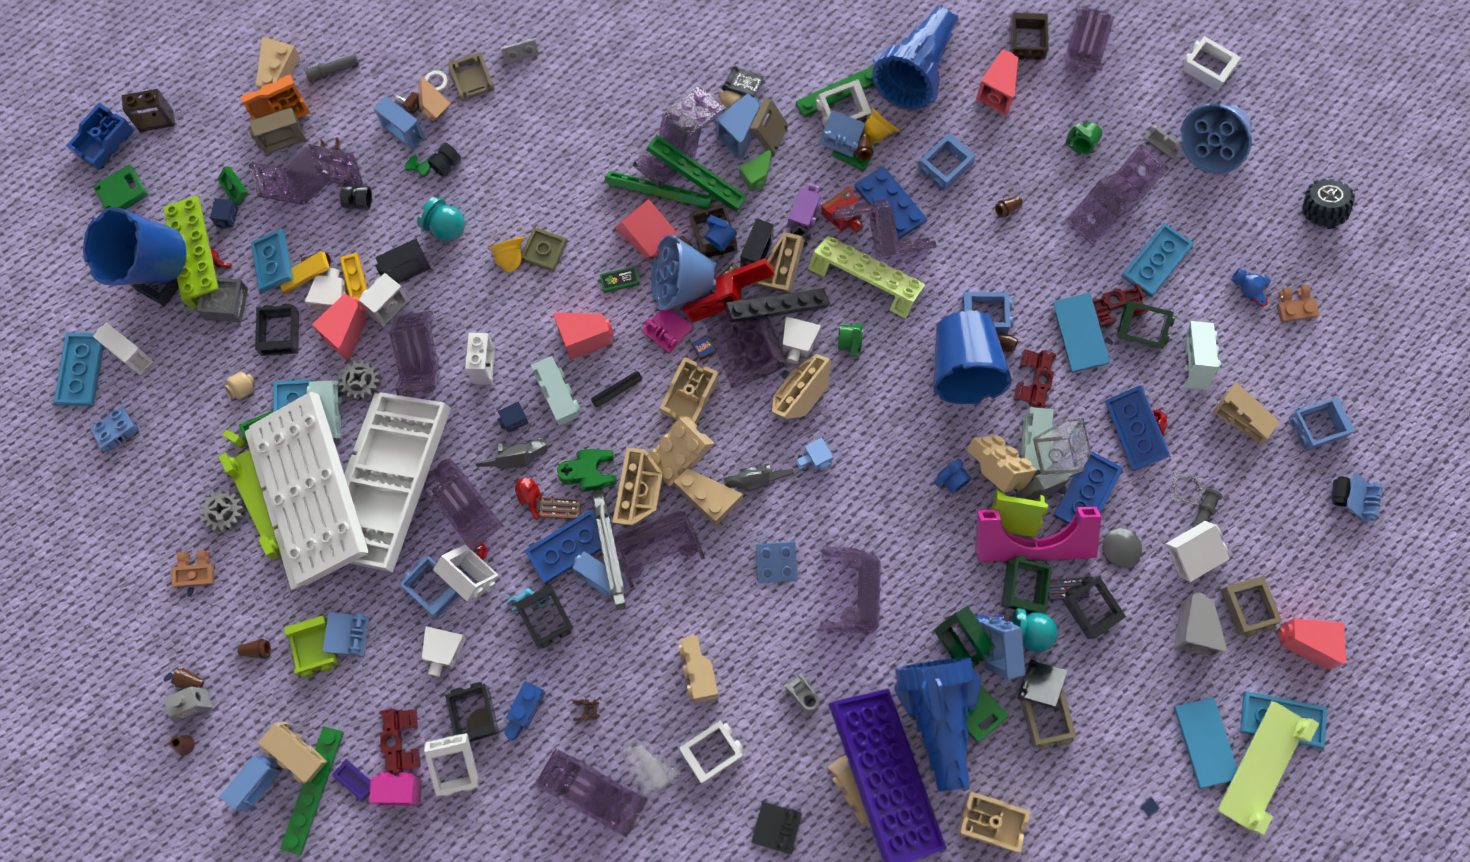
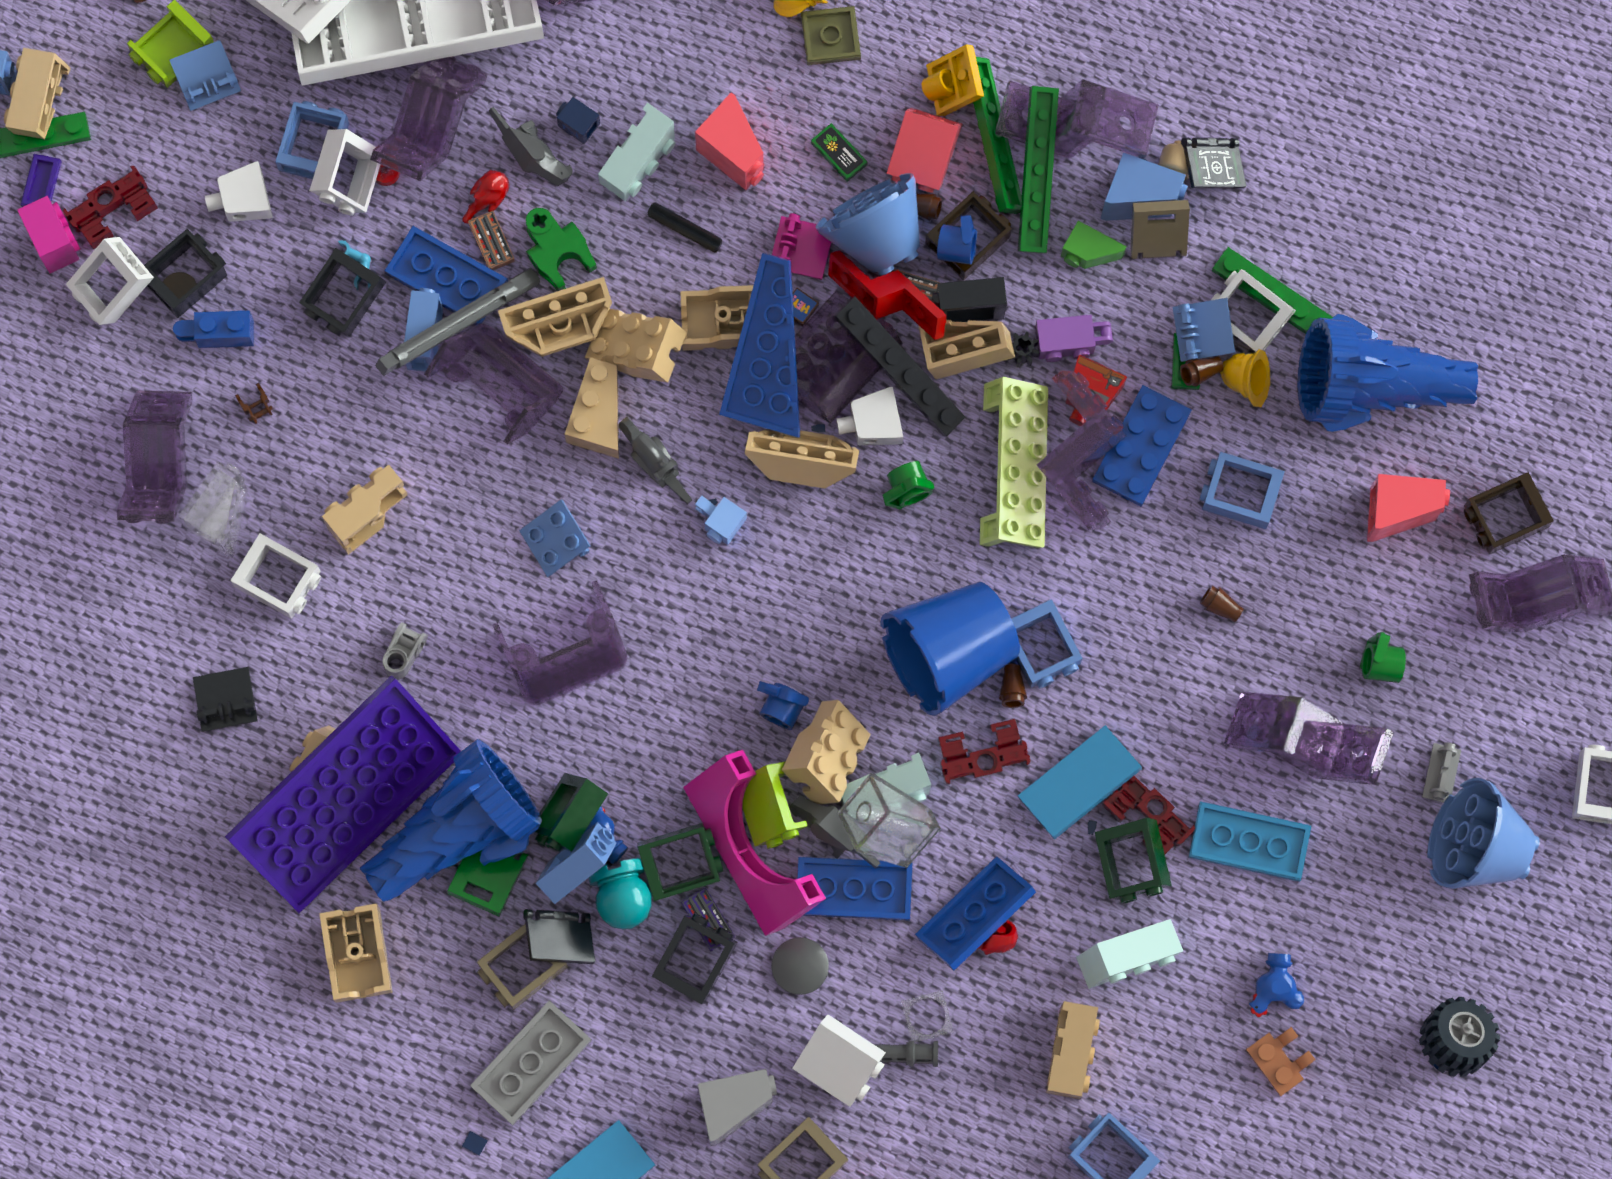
camera: 60 degrees right, 5 degrees up
(479, 354) = (618, 43): white window -> none
(614, 192) = (953, 80): none -> yellow plate
(734, 379) = (764, 368): none -> blue wing
(1114, 744) = (531, 1063): none -> light grey plate

